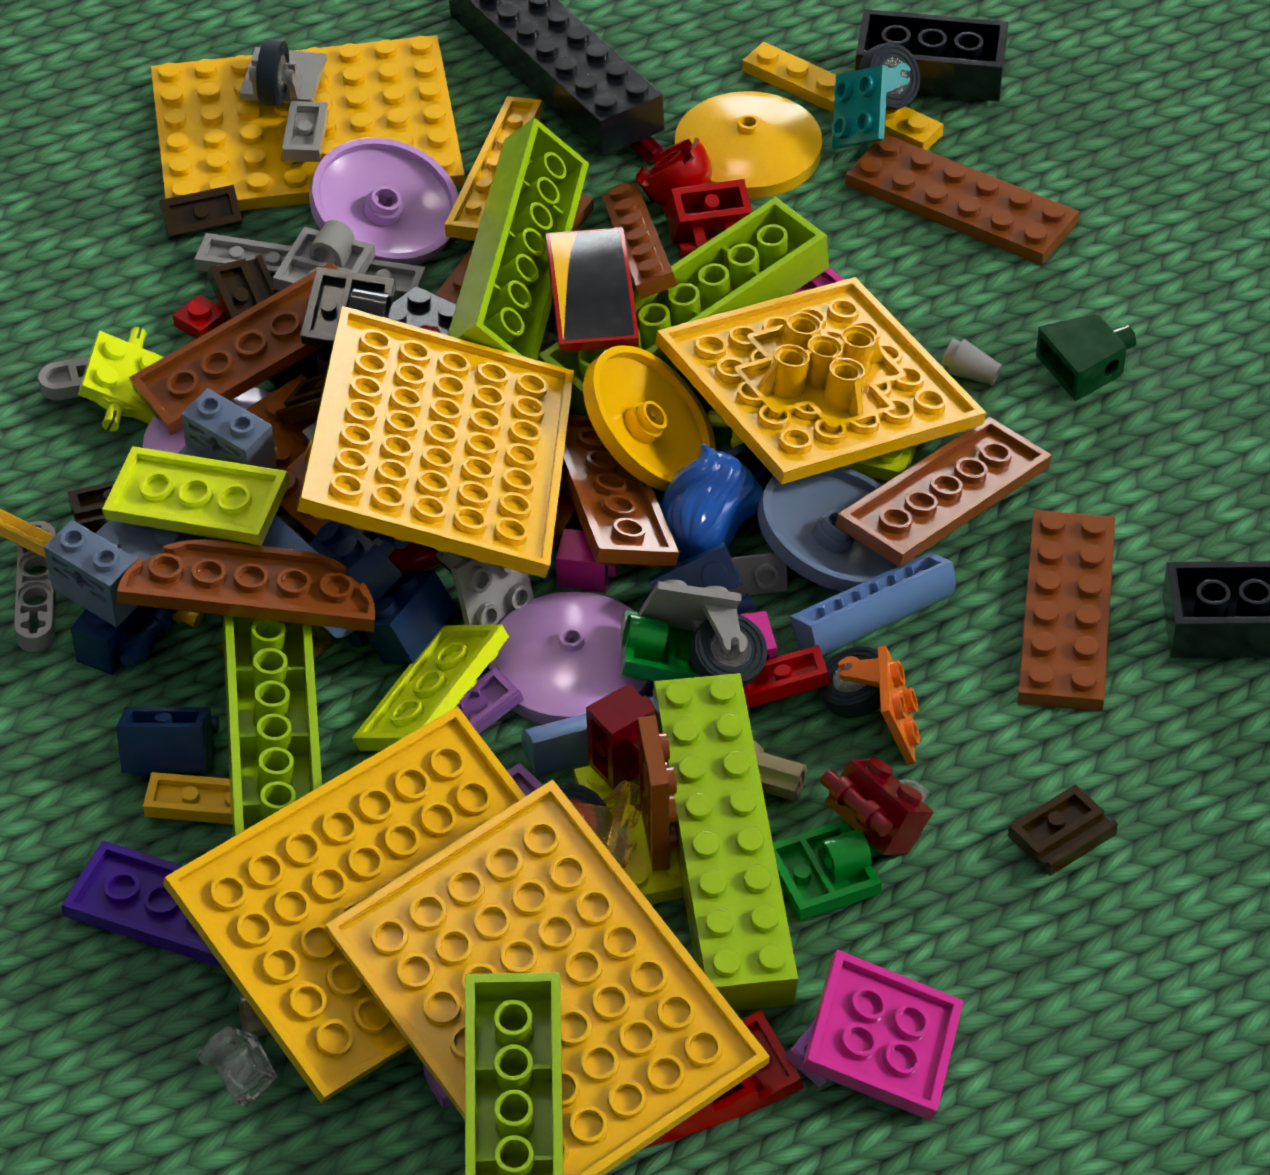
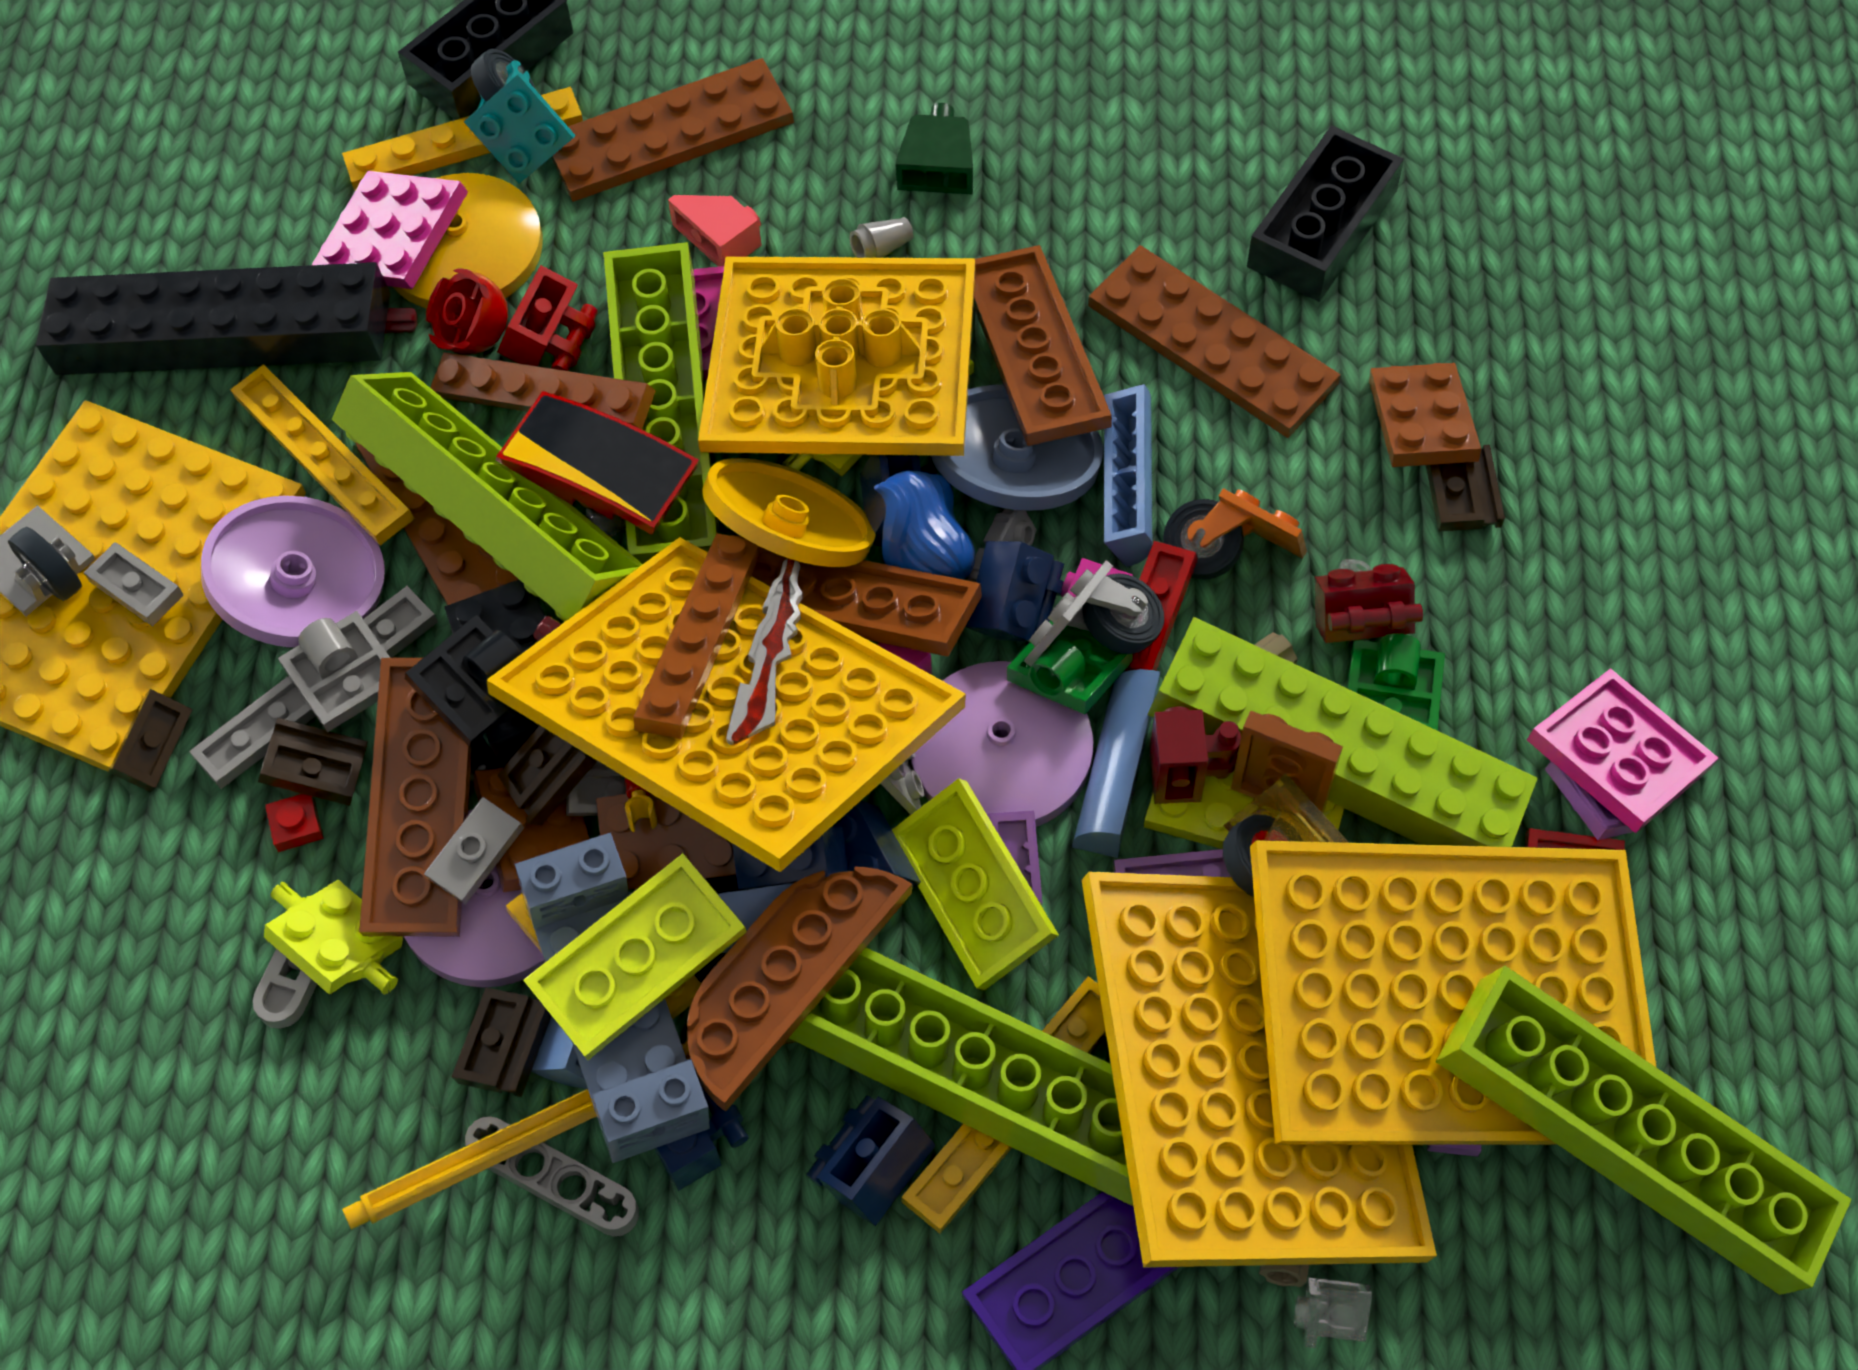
camera: 55 degrees left, 15 degrees up
(244, 389) = (474, 850): none -> light grey plate
(472, 399) = (697, 637): none -> dark orange plate
(500, 443) = (756, 702): none -> light grey sword
(715, 95) = (394, 224): none -> plate
(890, 267) = (716, 225): none -> coral slope
(1109, 768) = (1424, 415): none -> dark orange plate

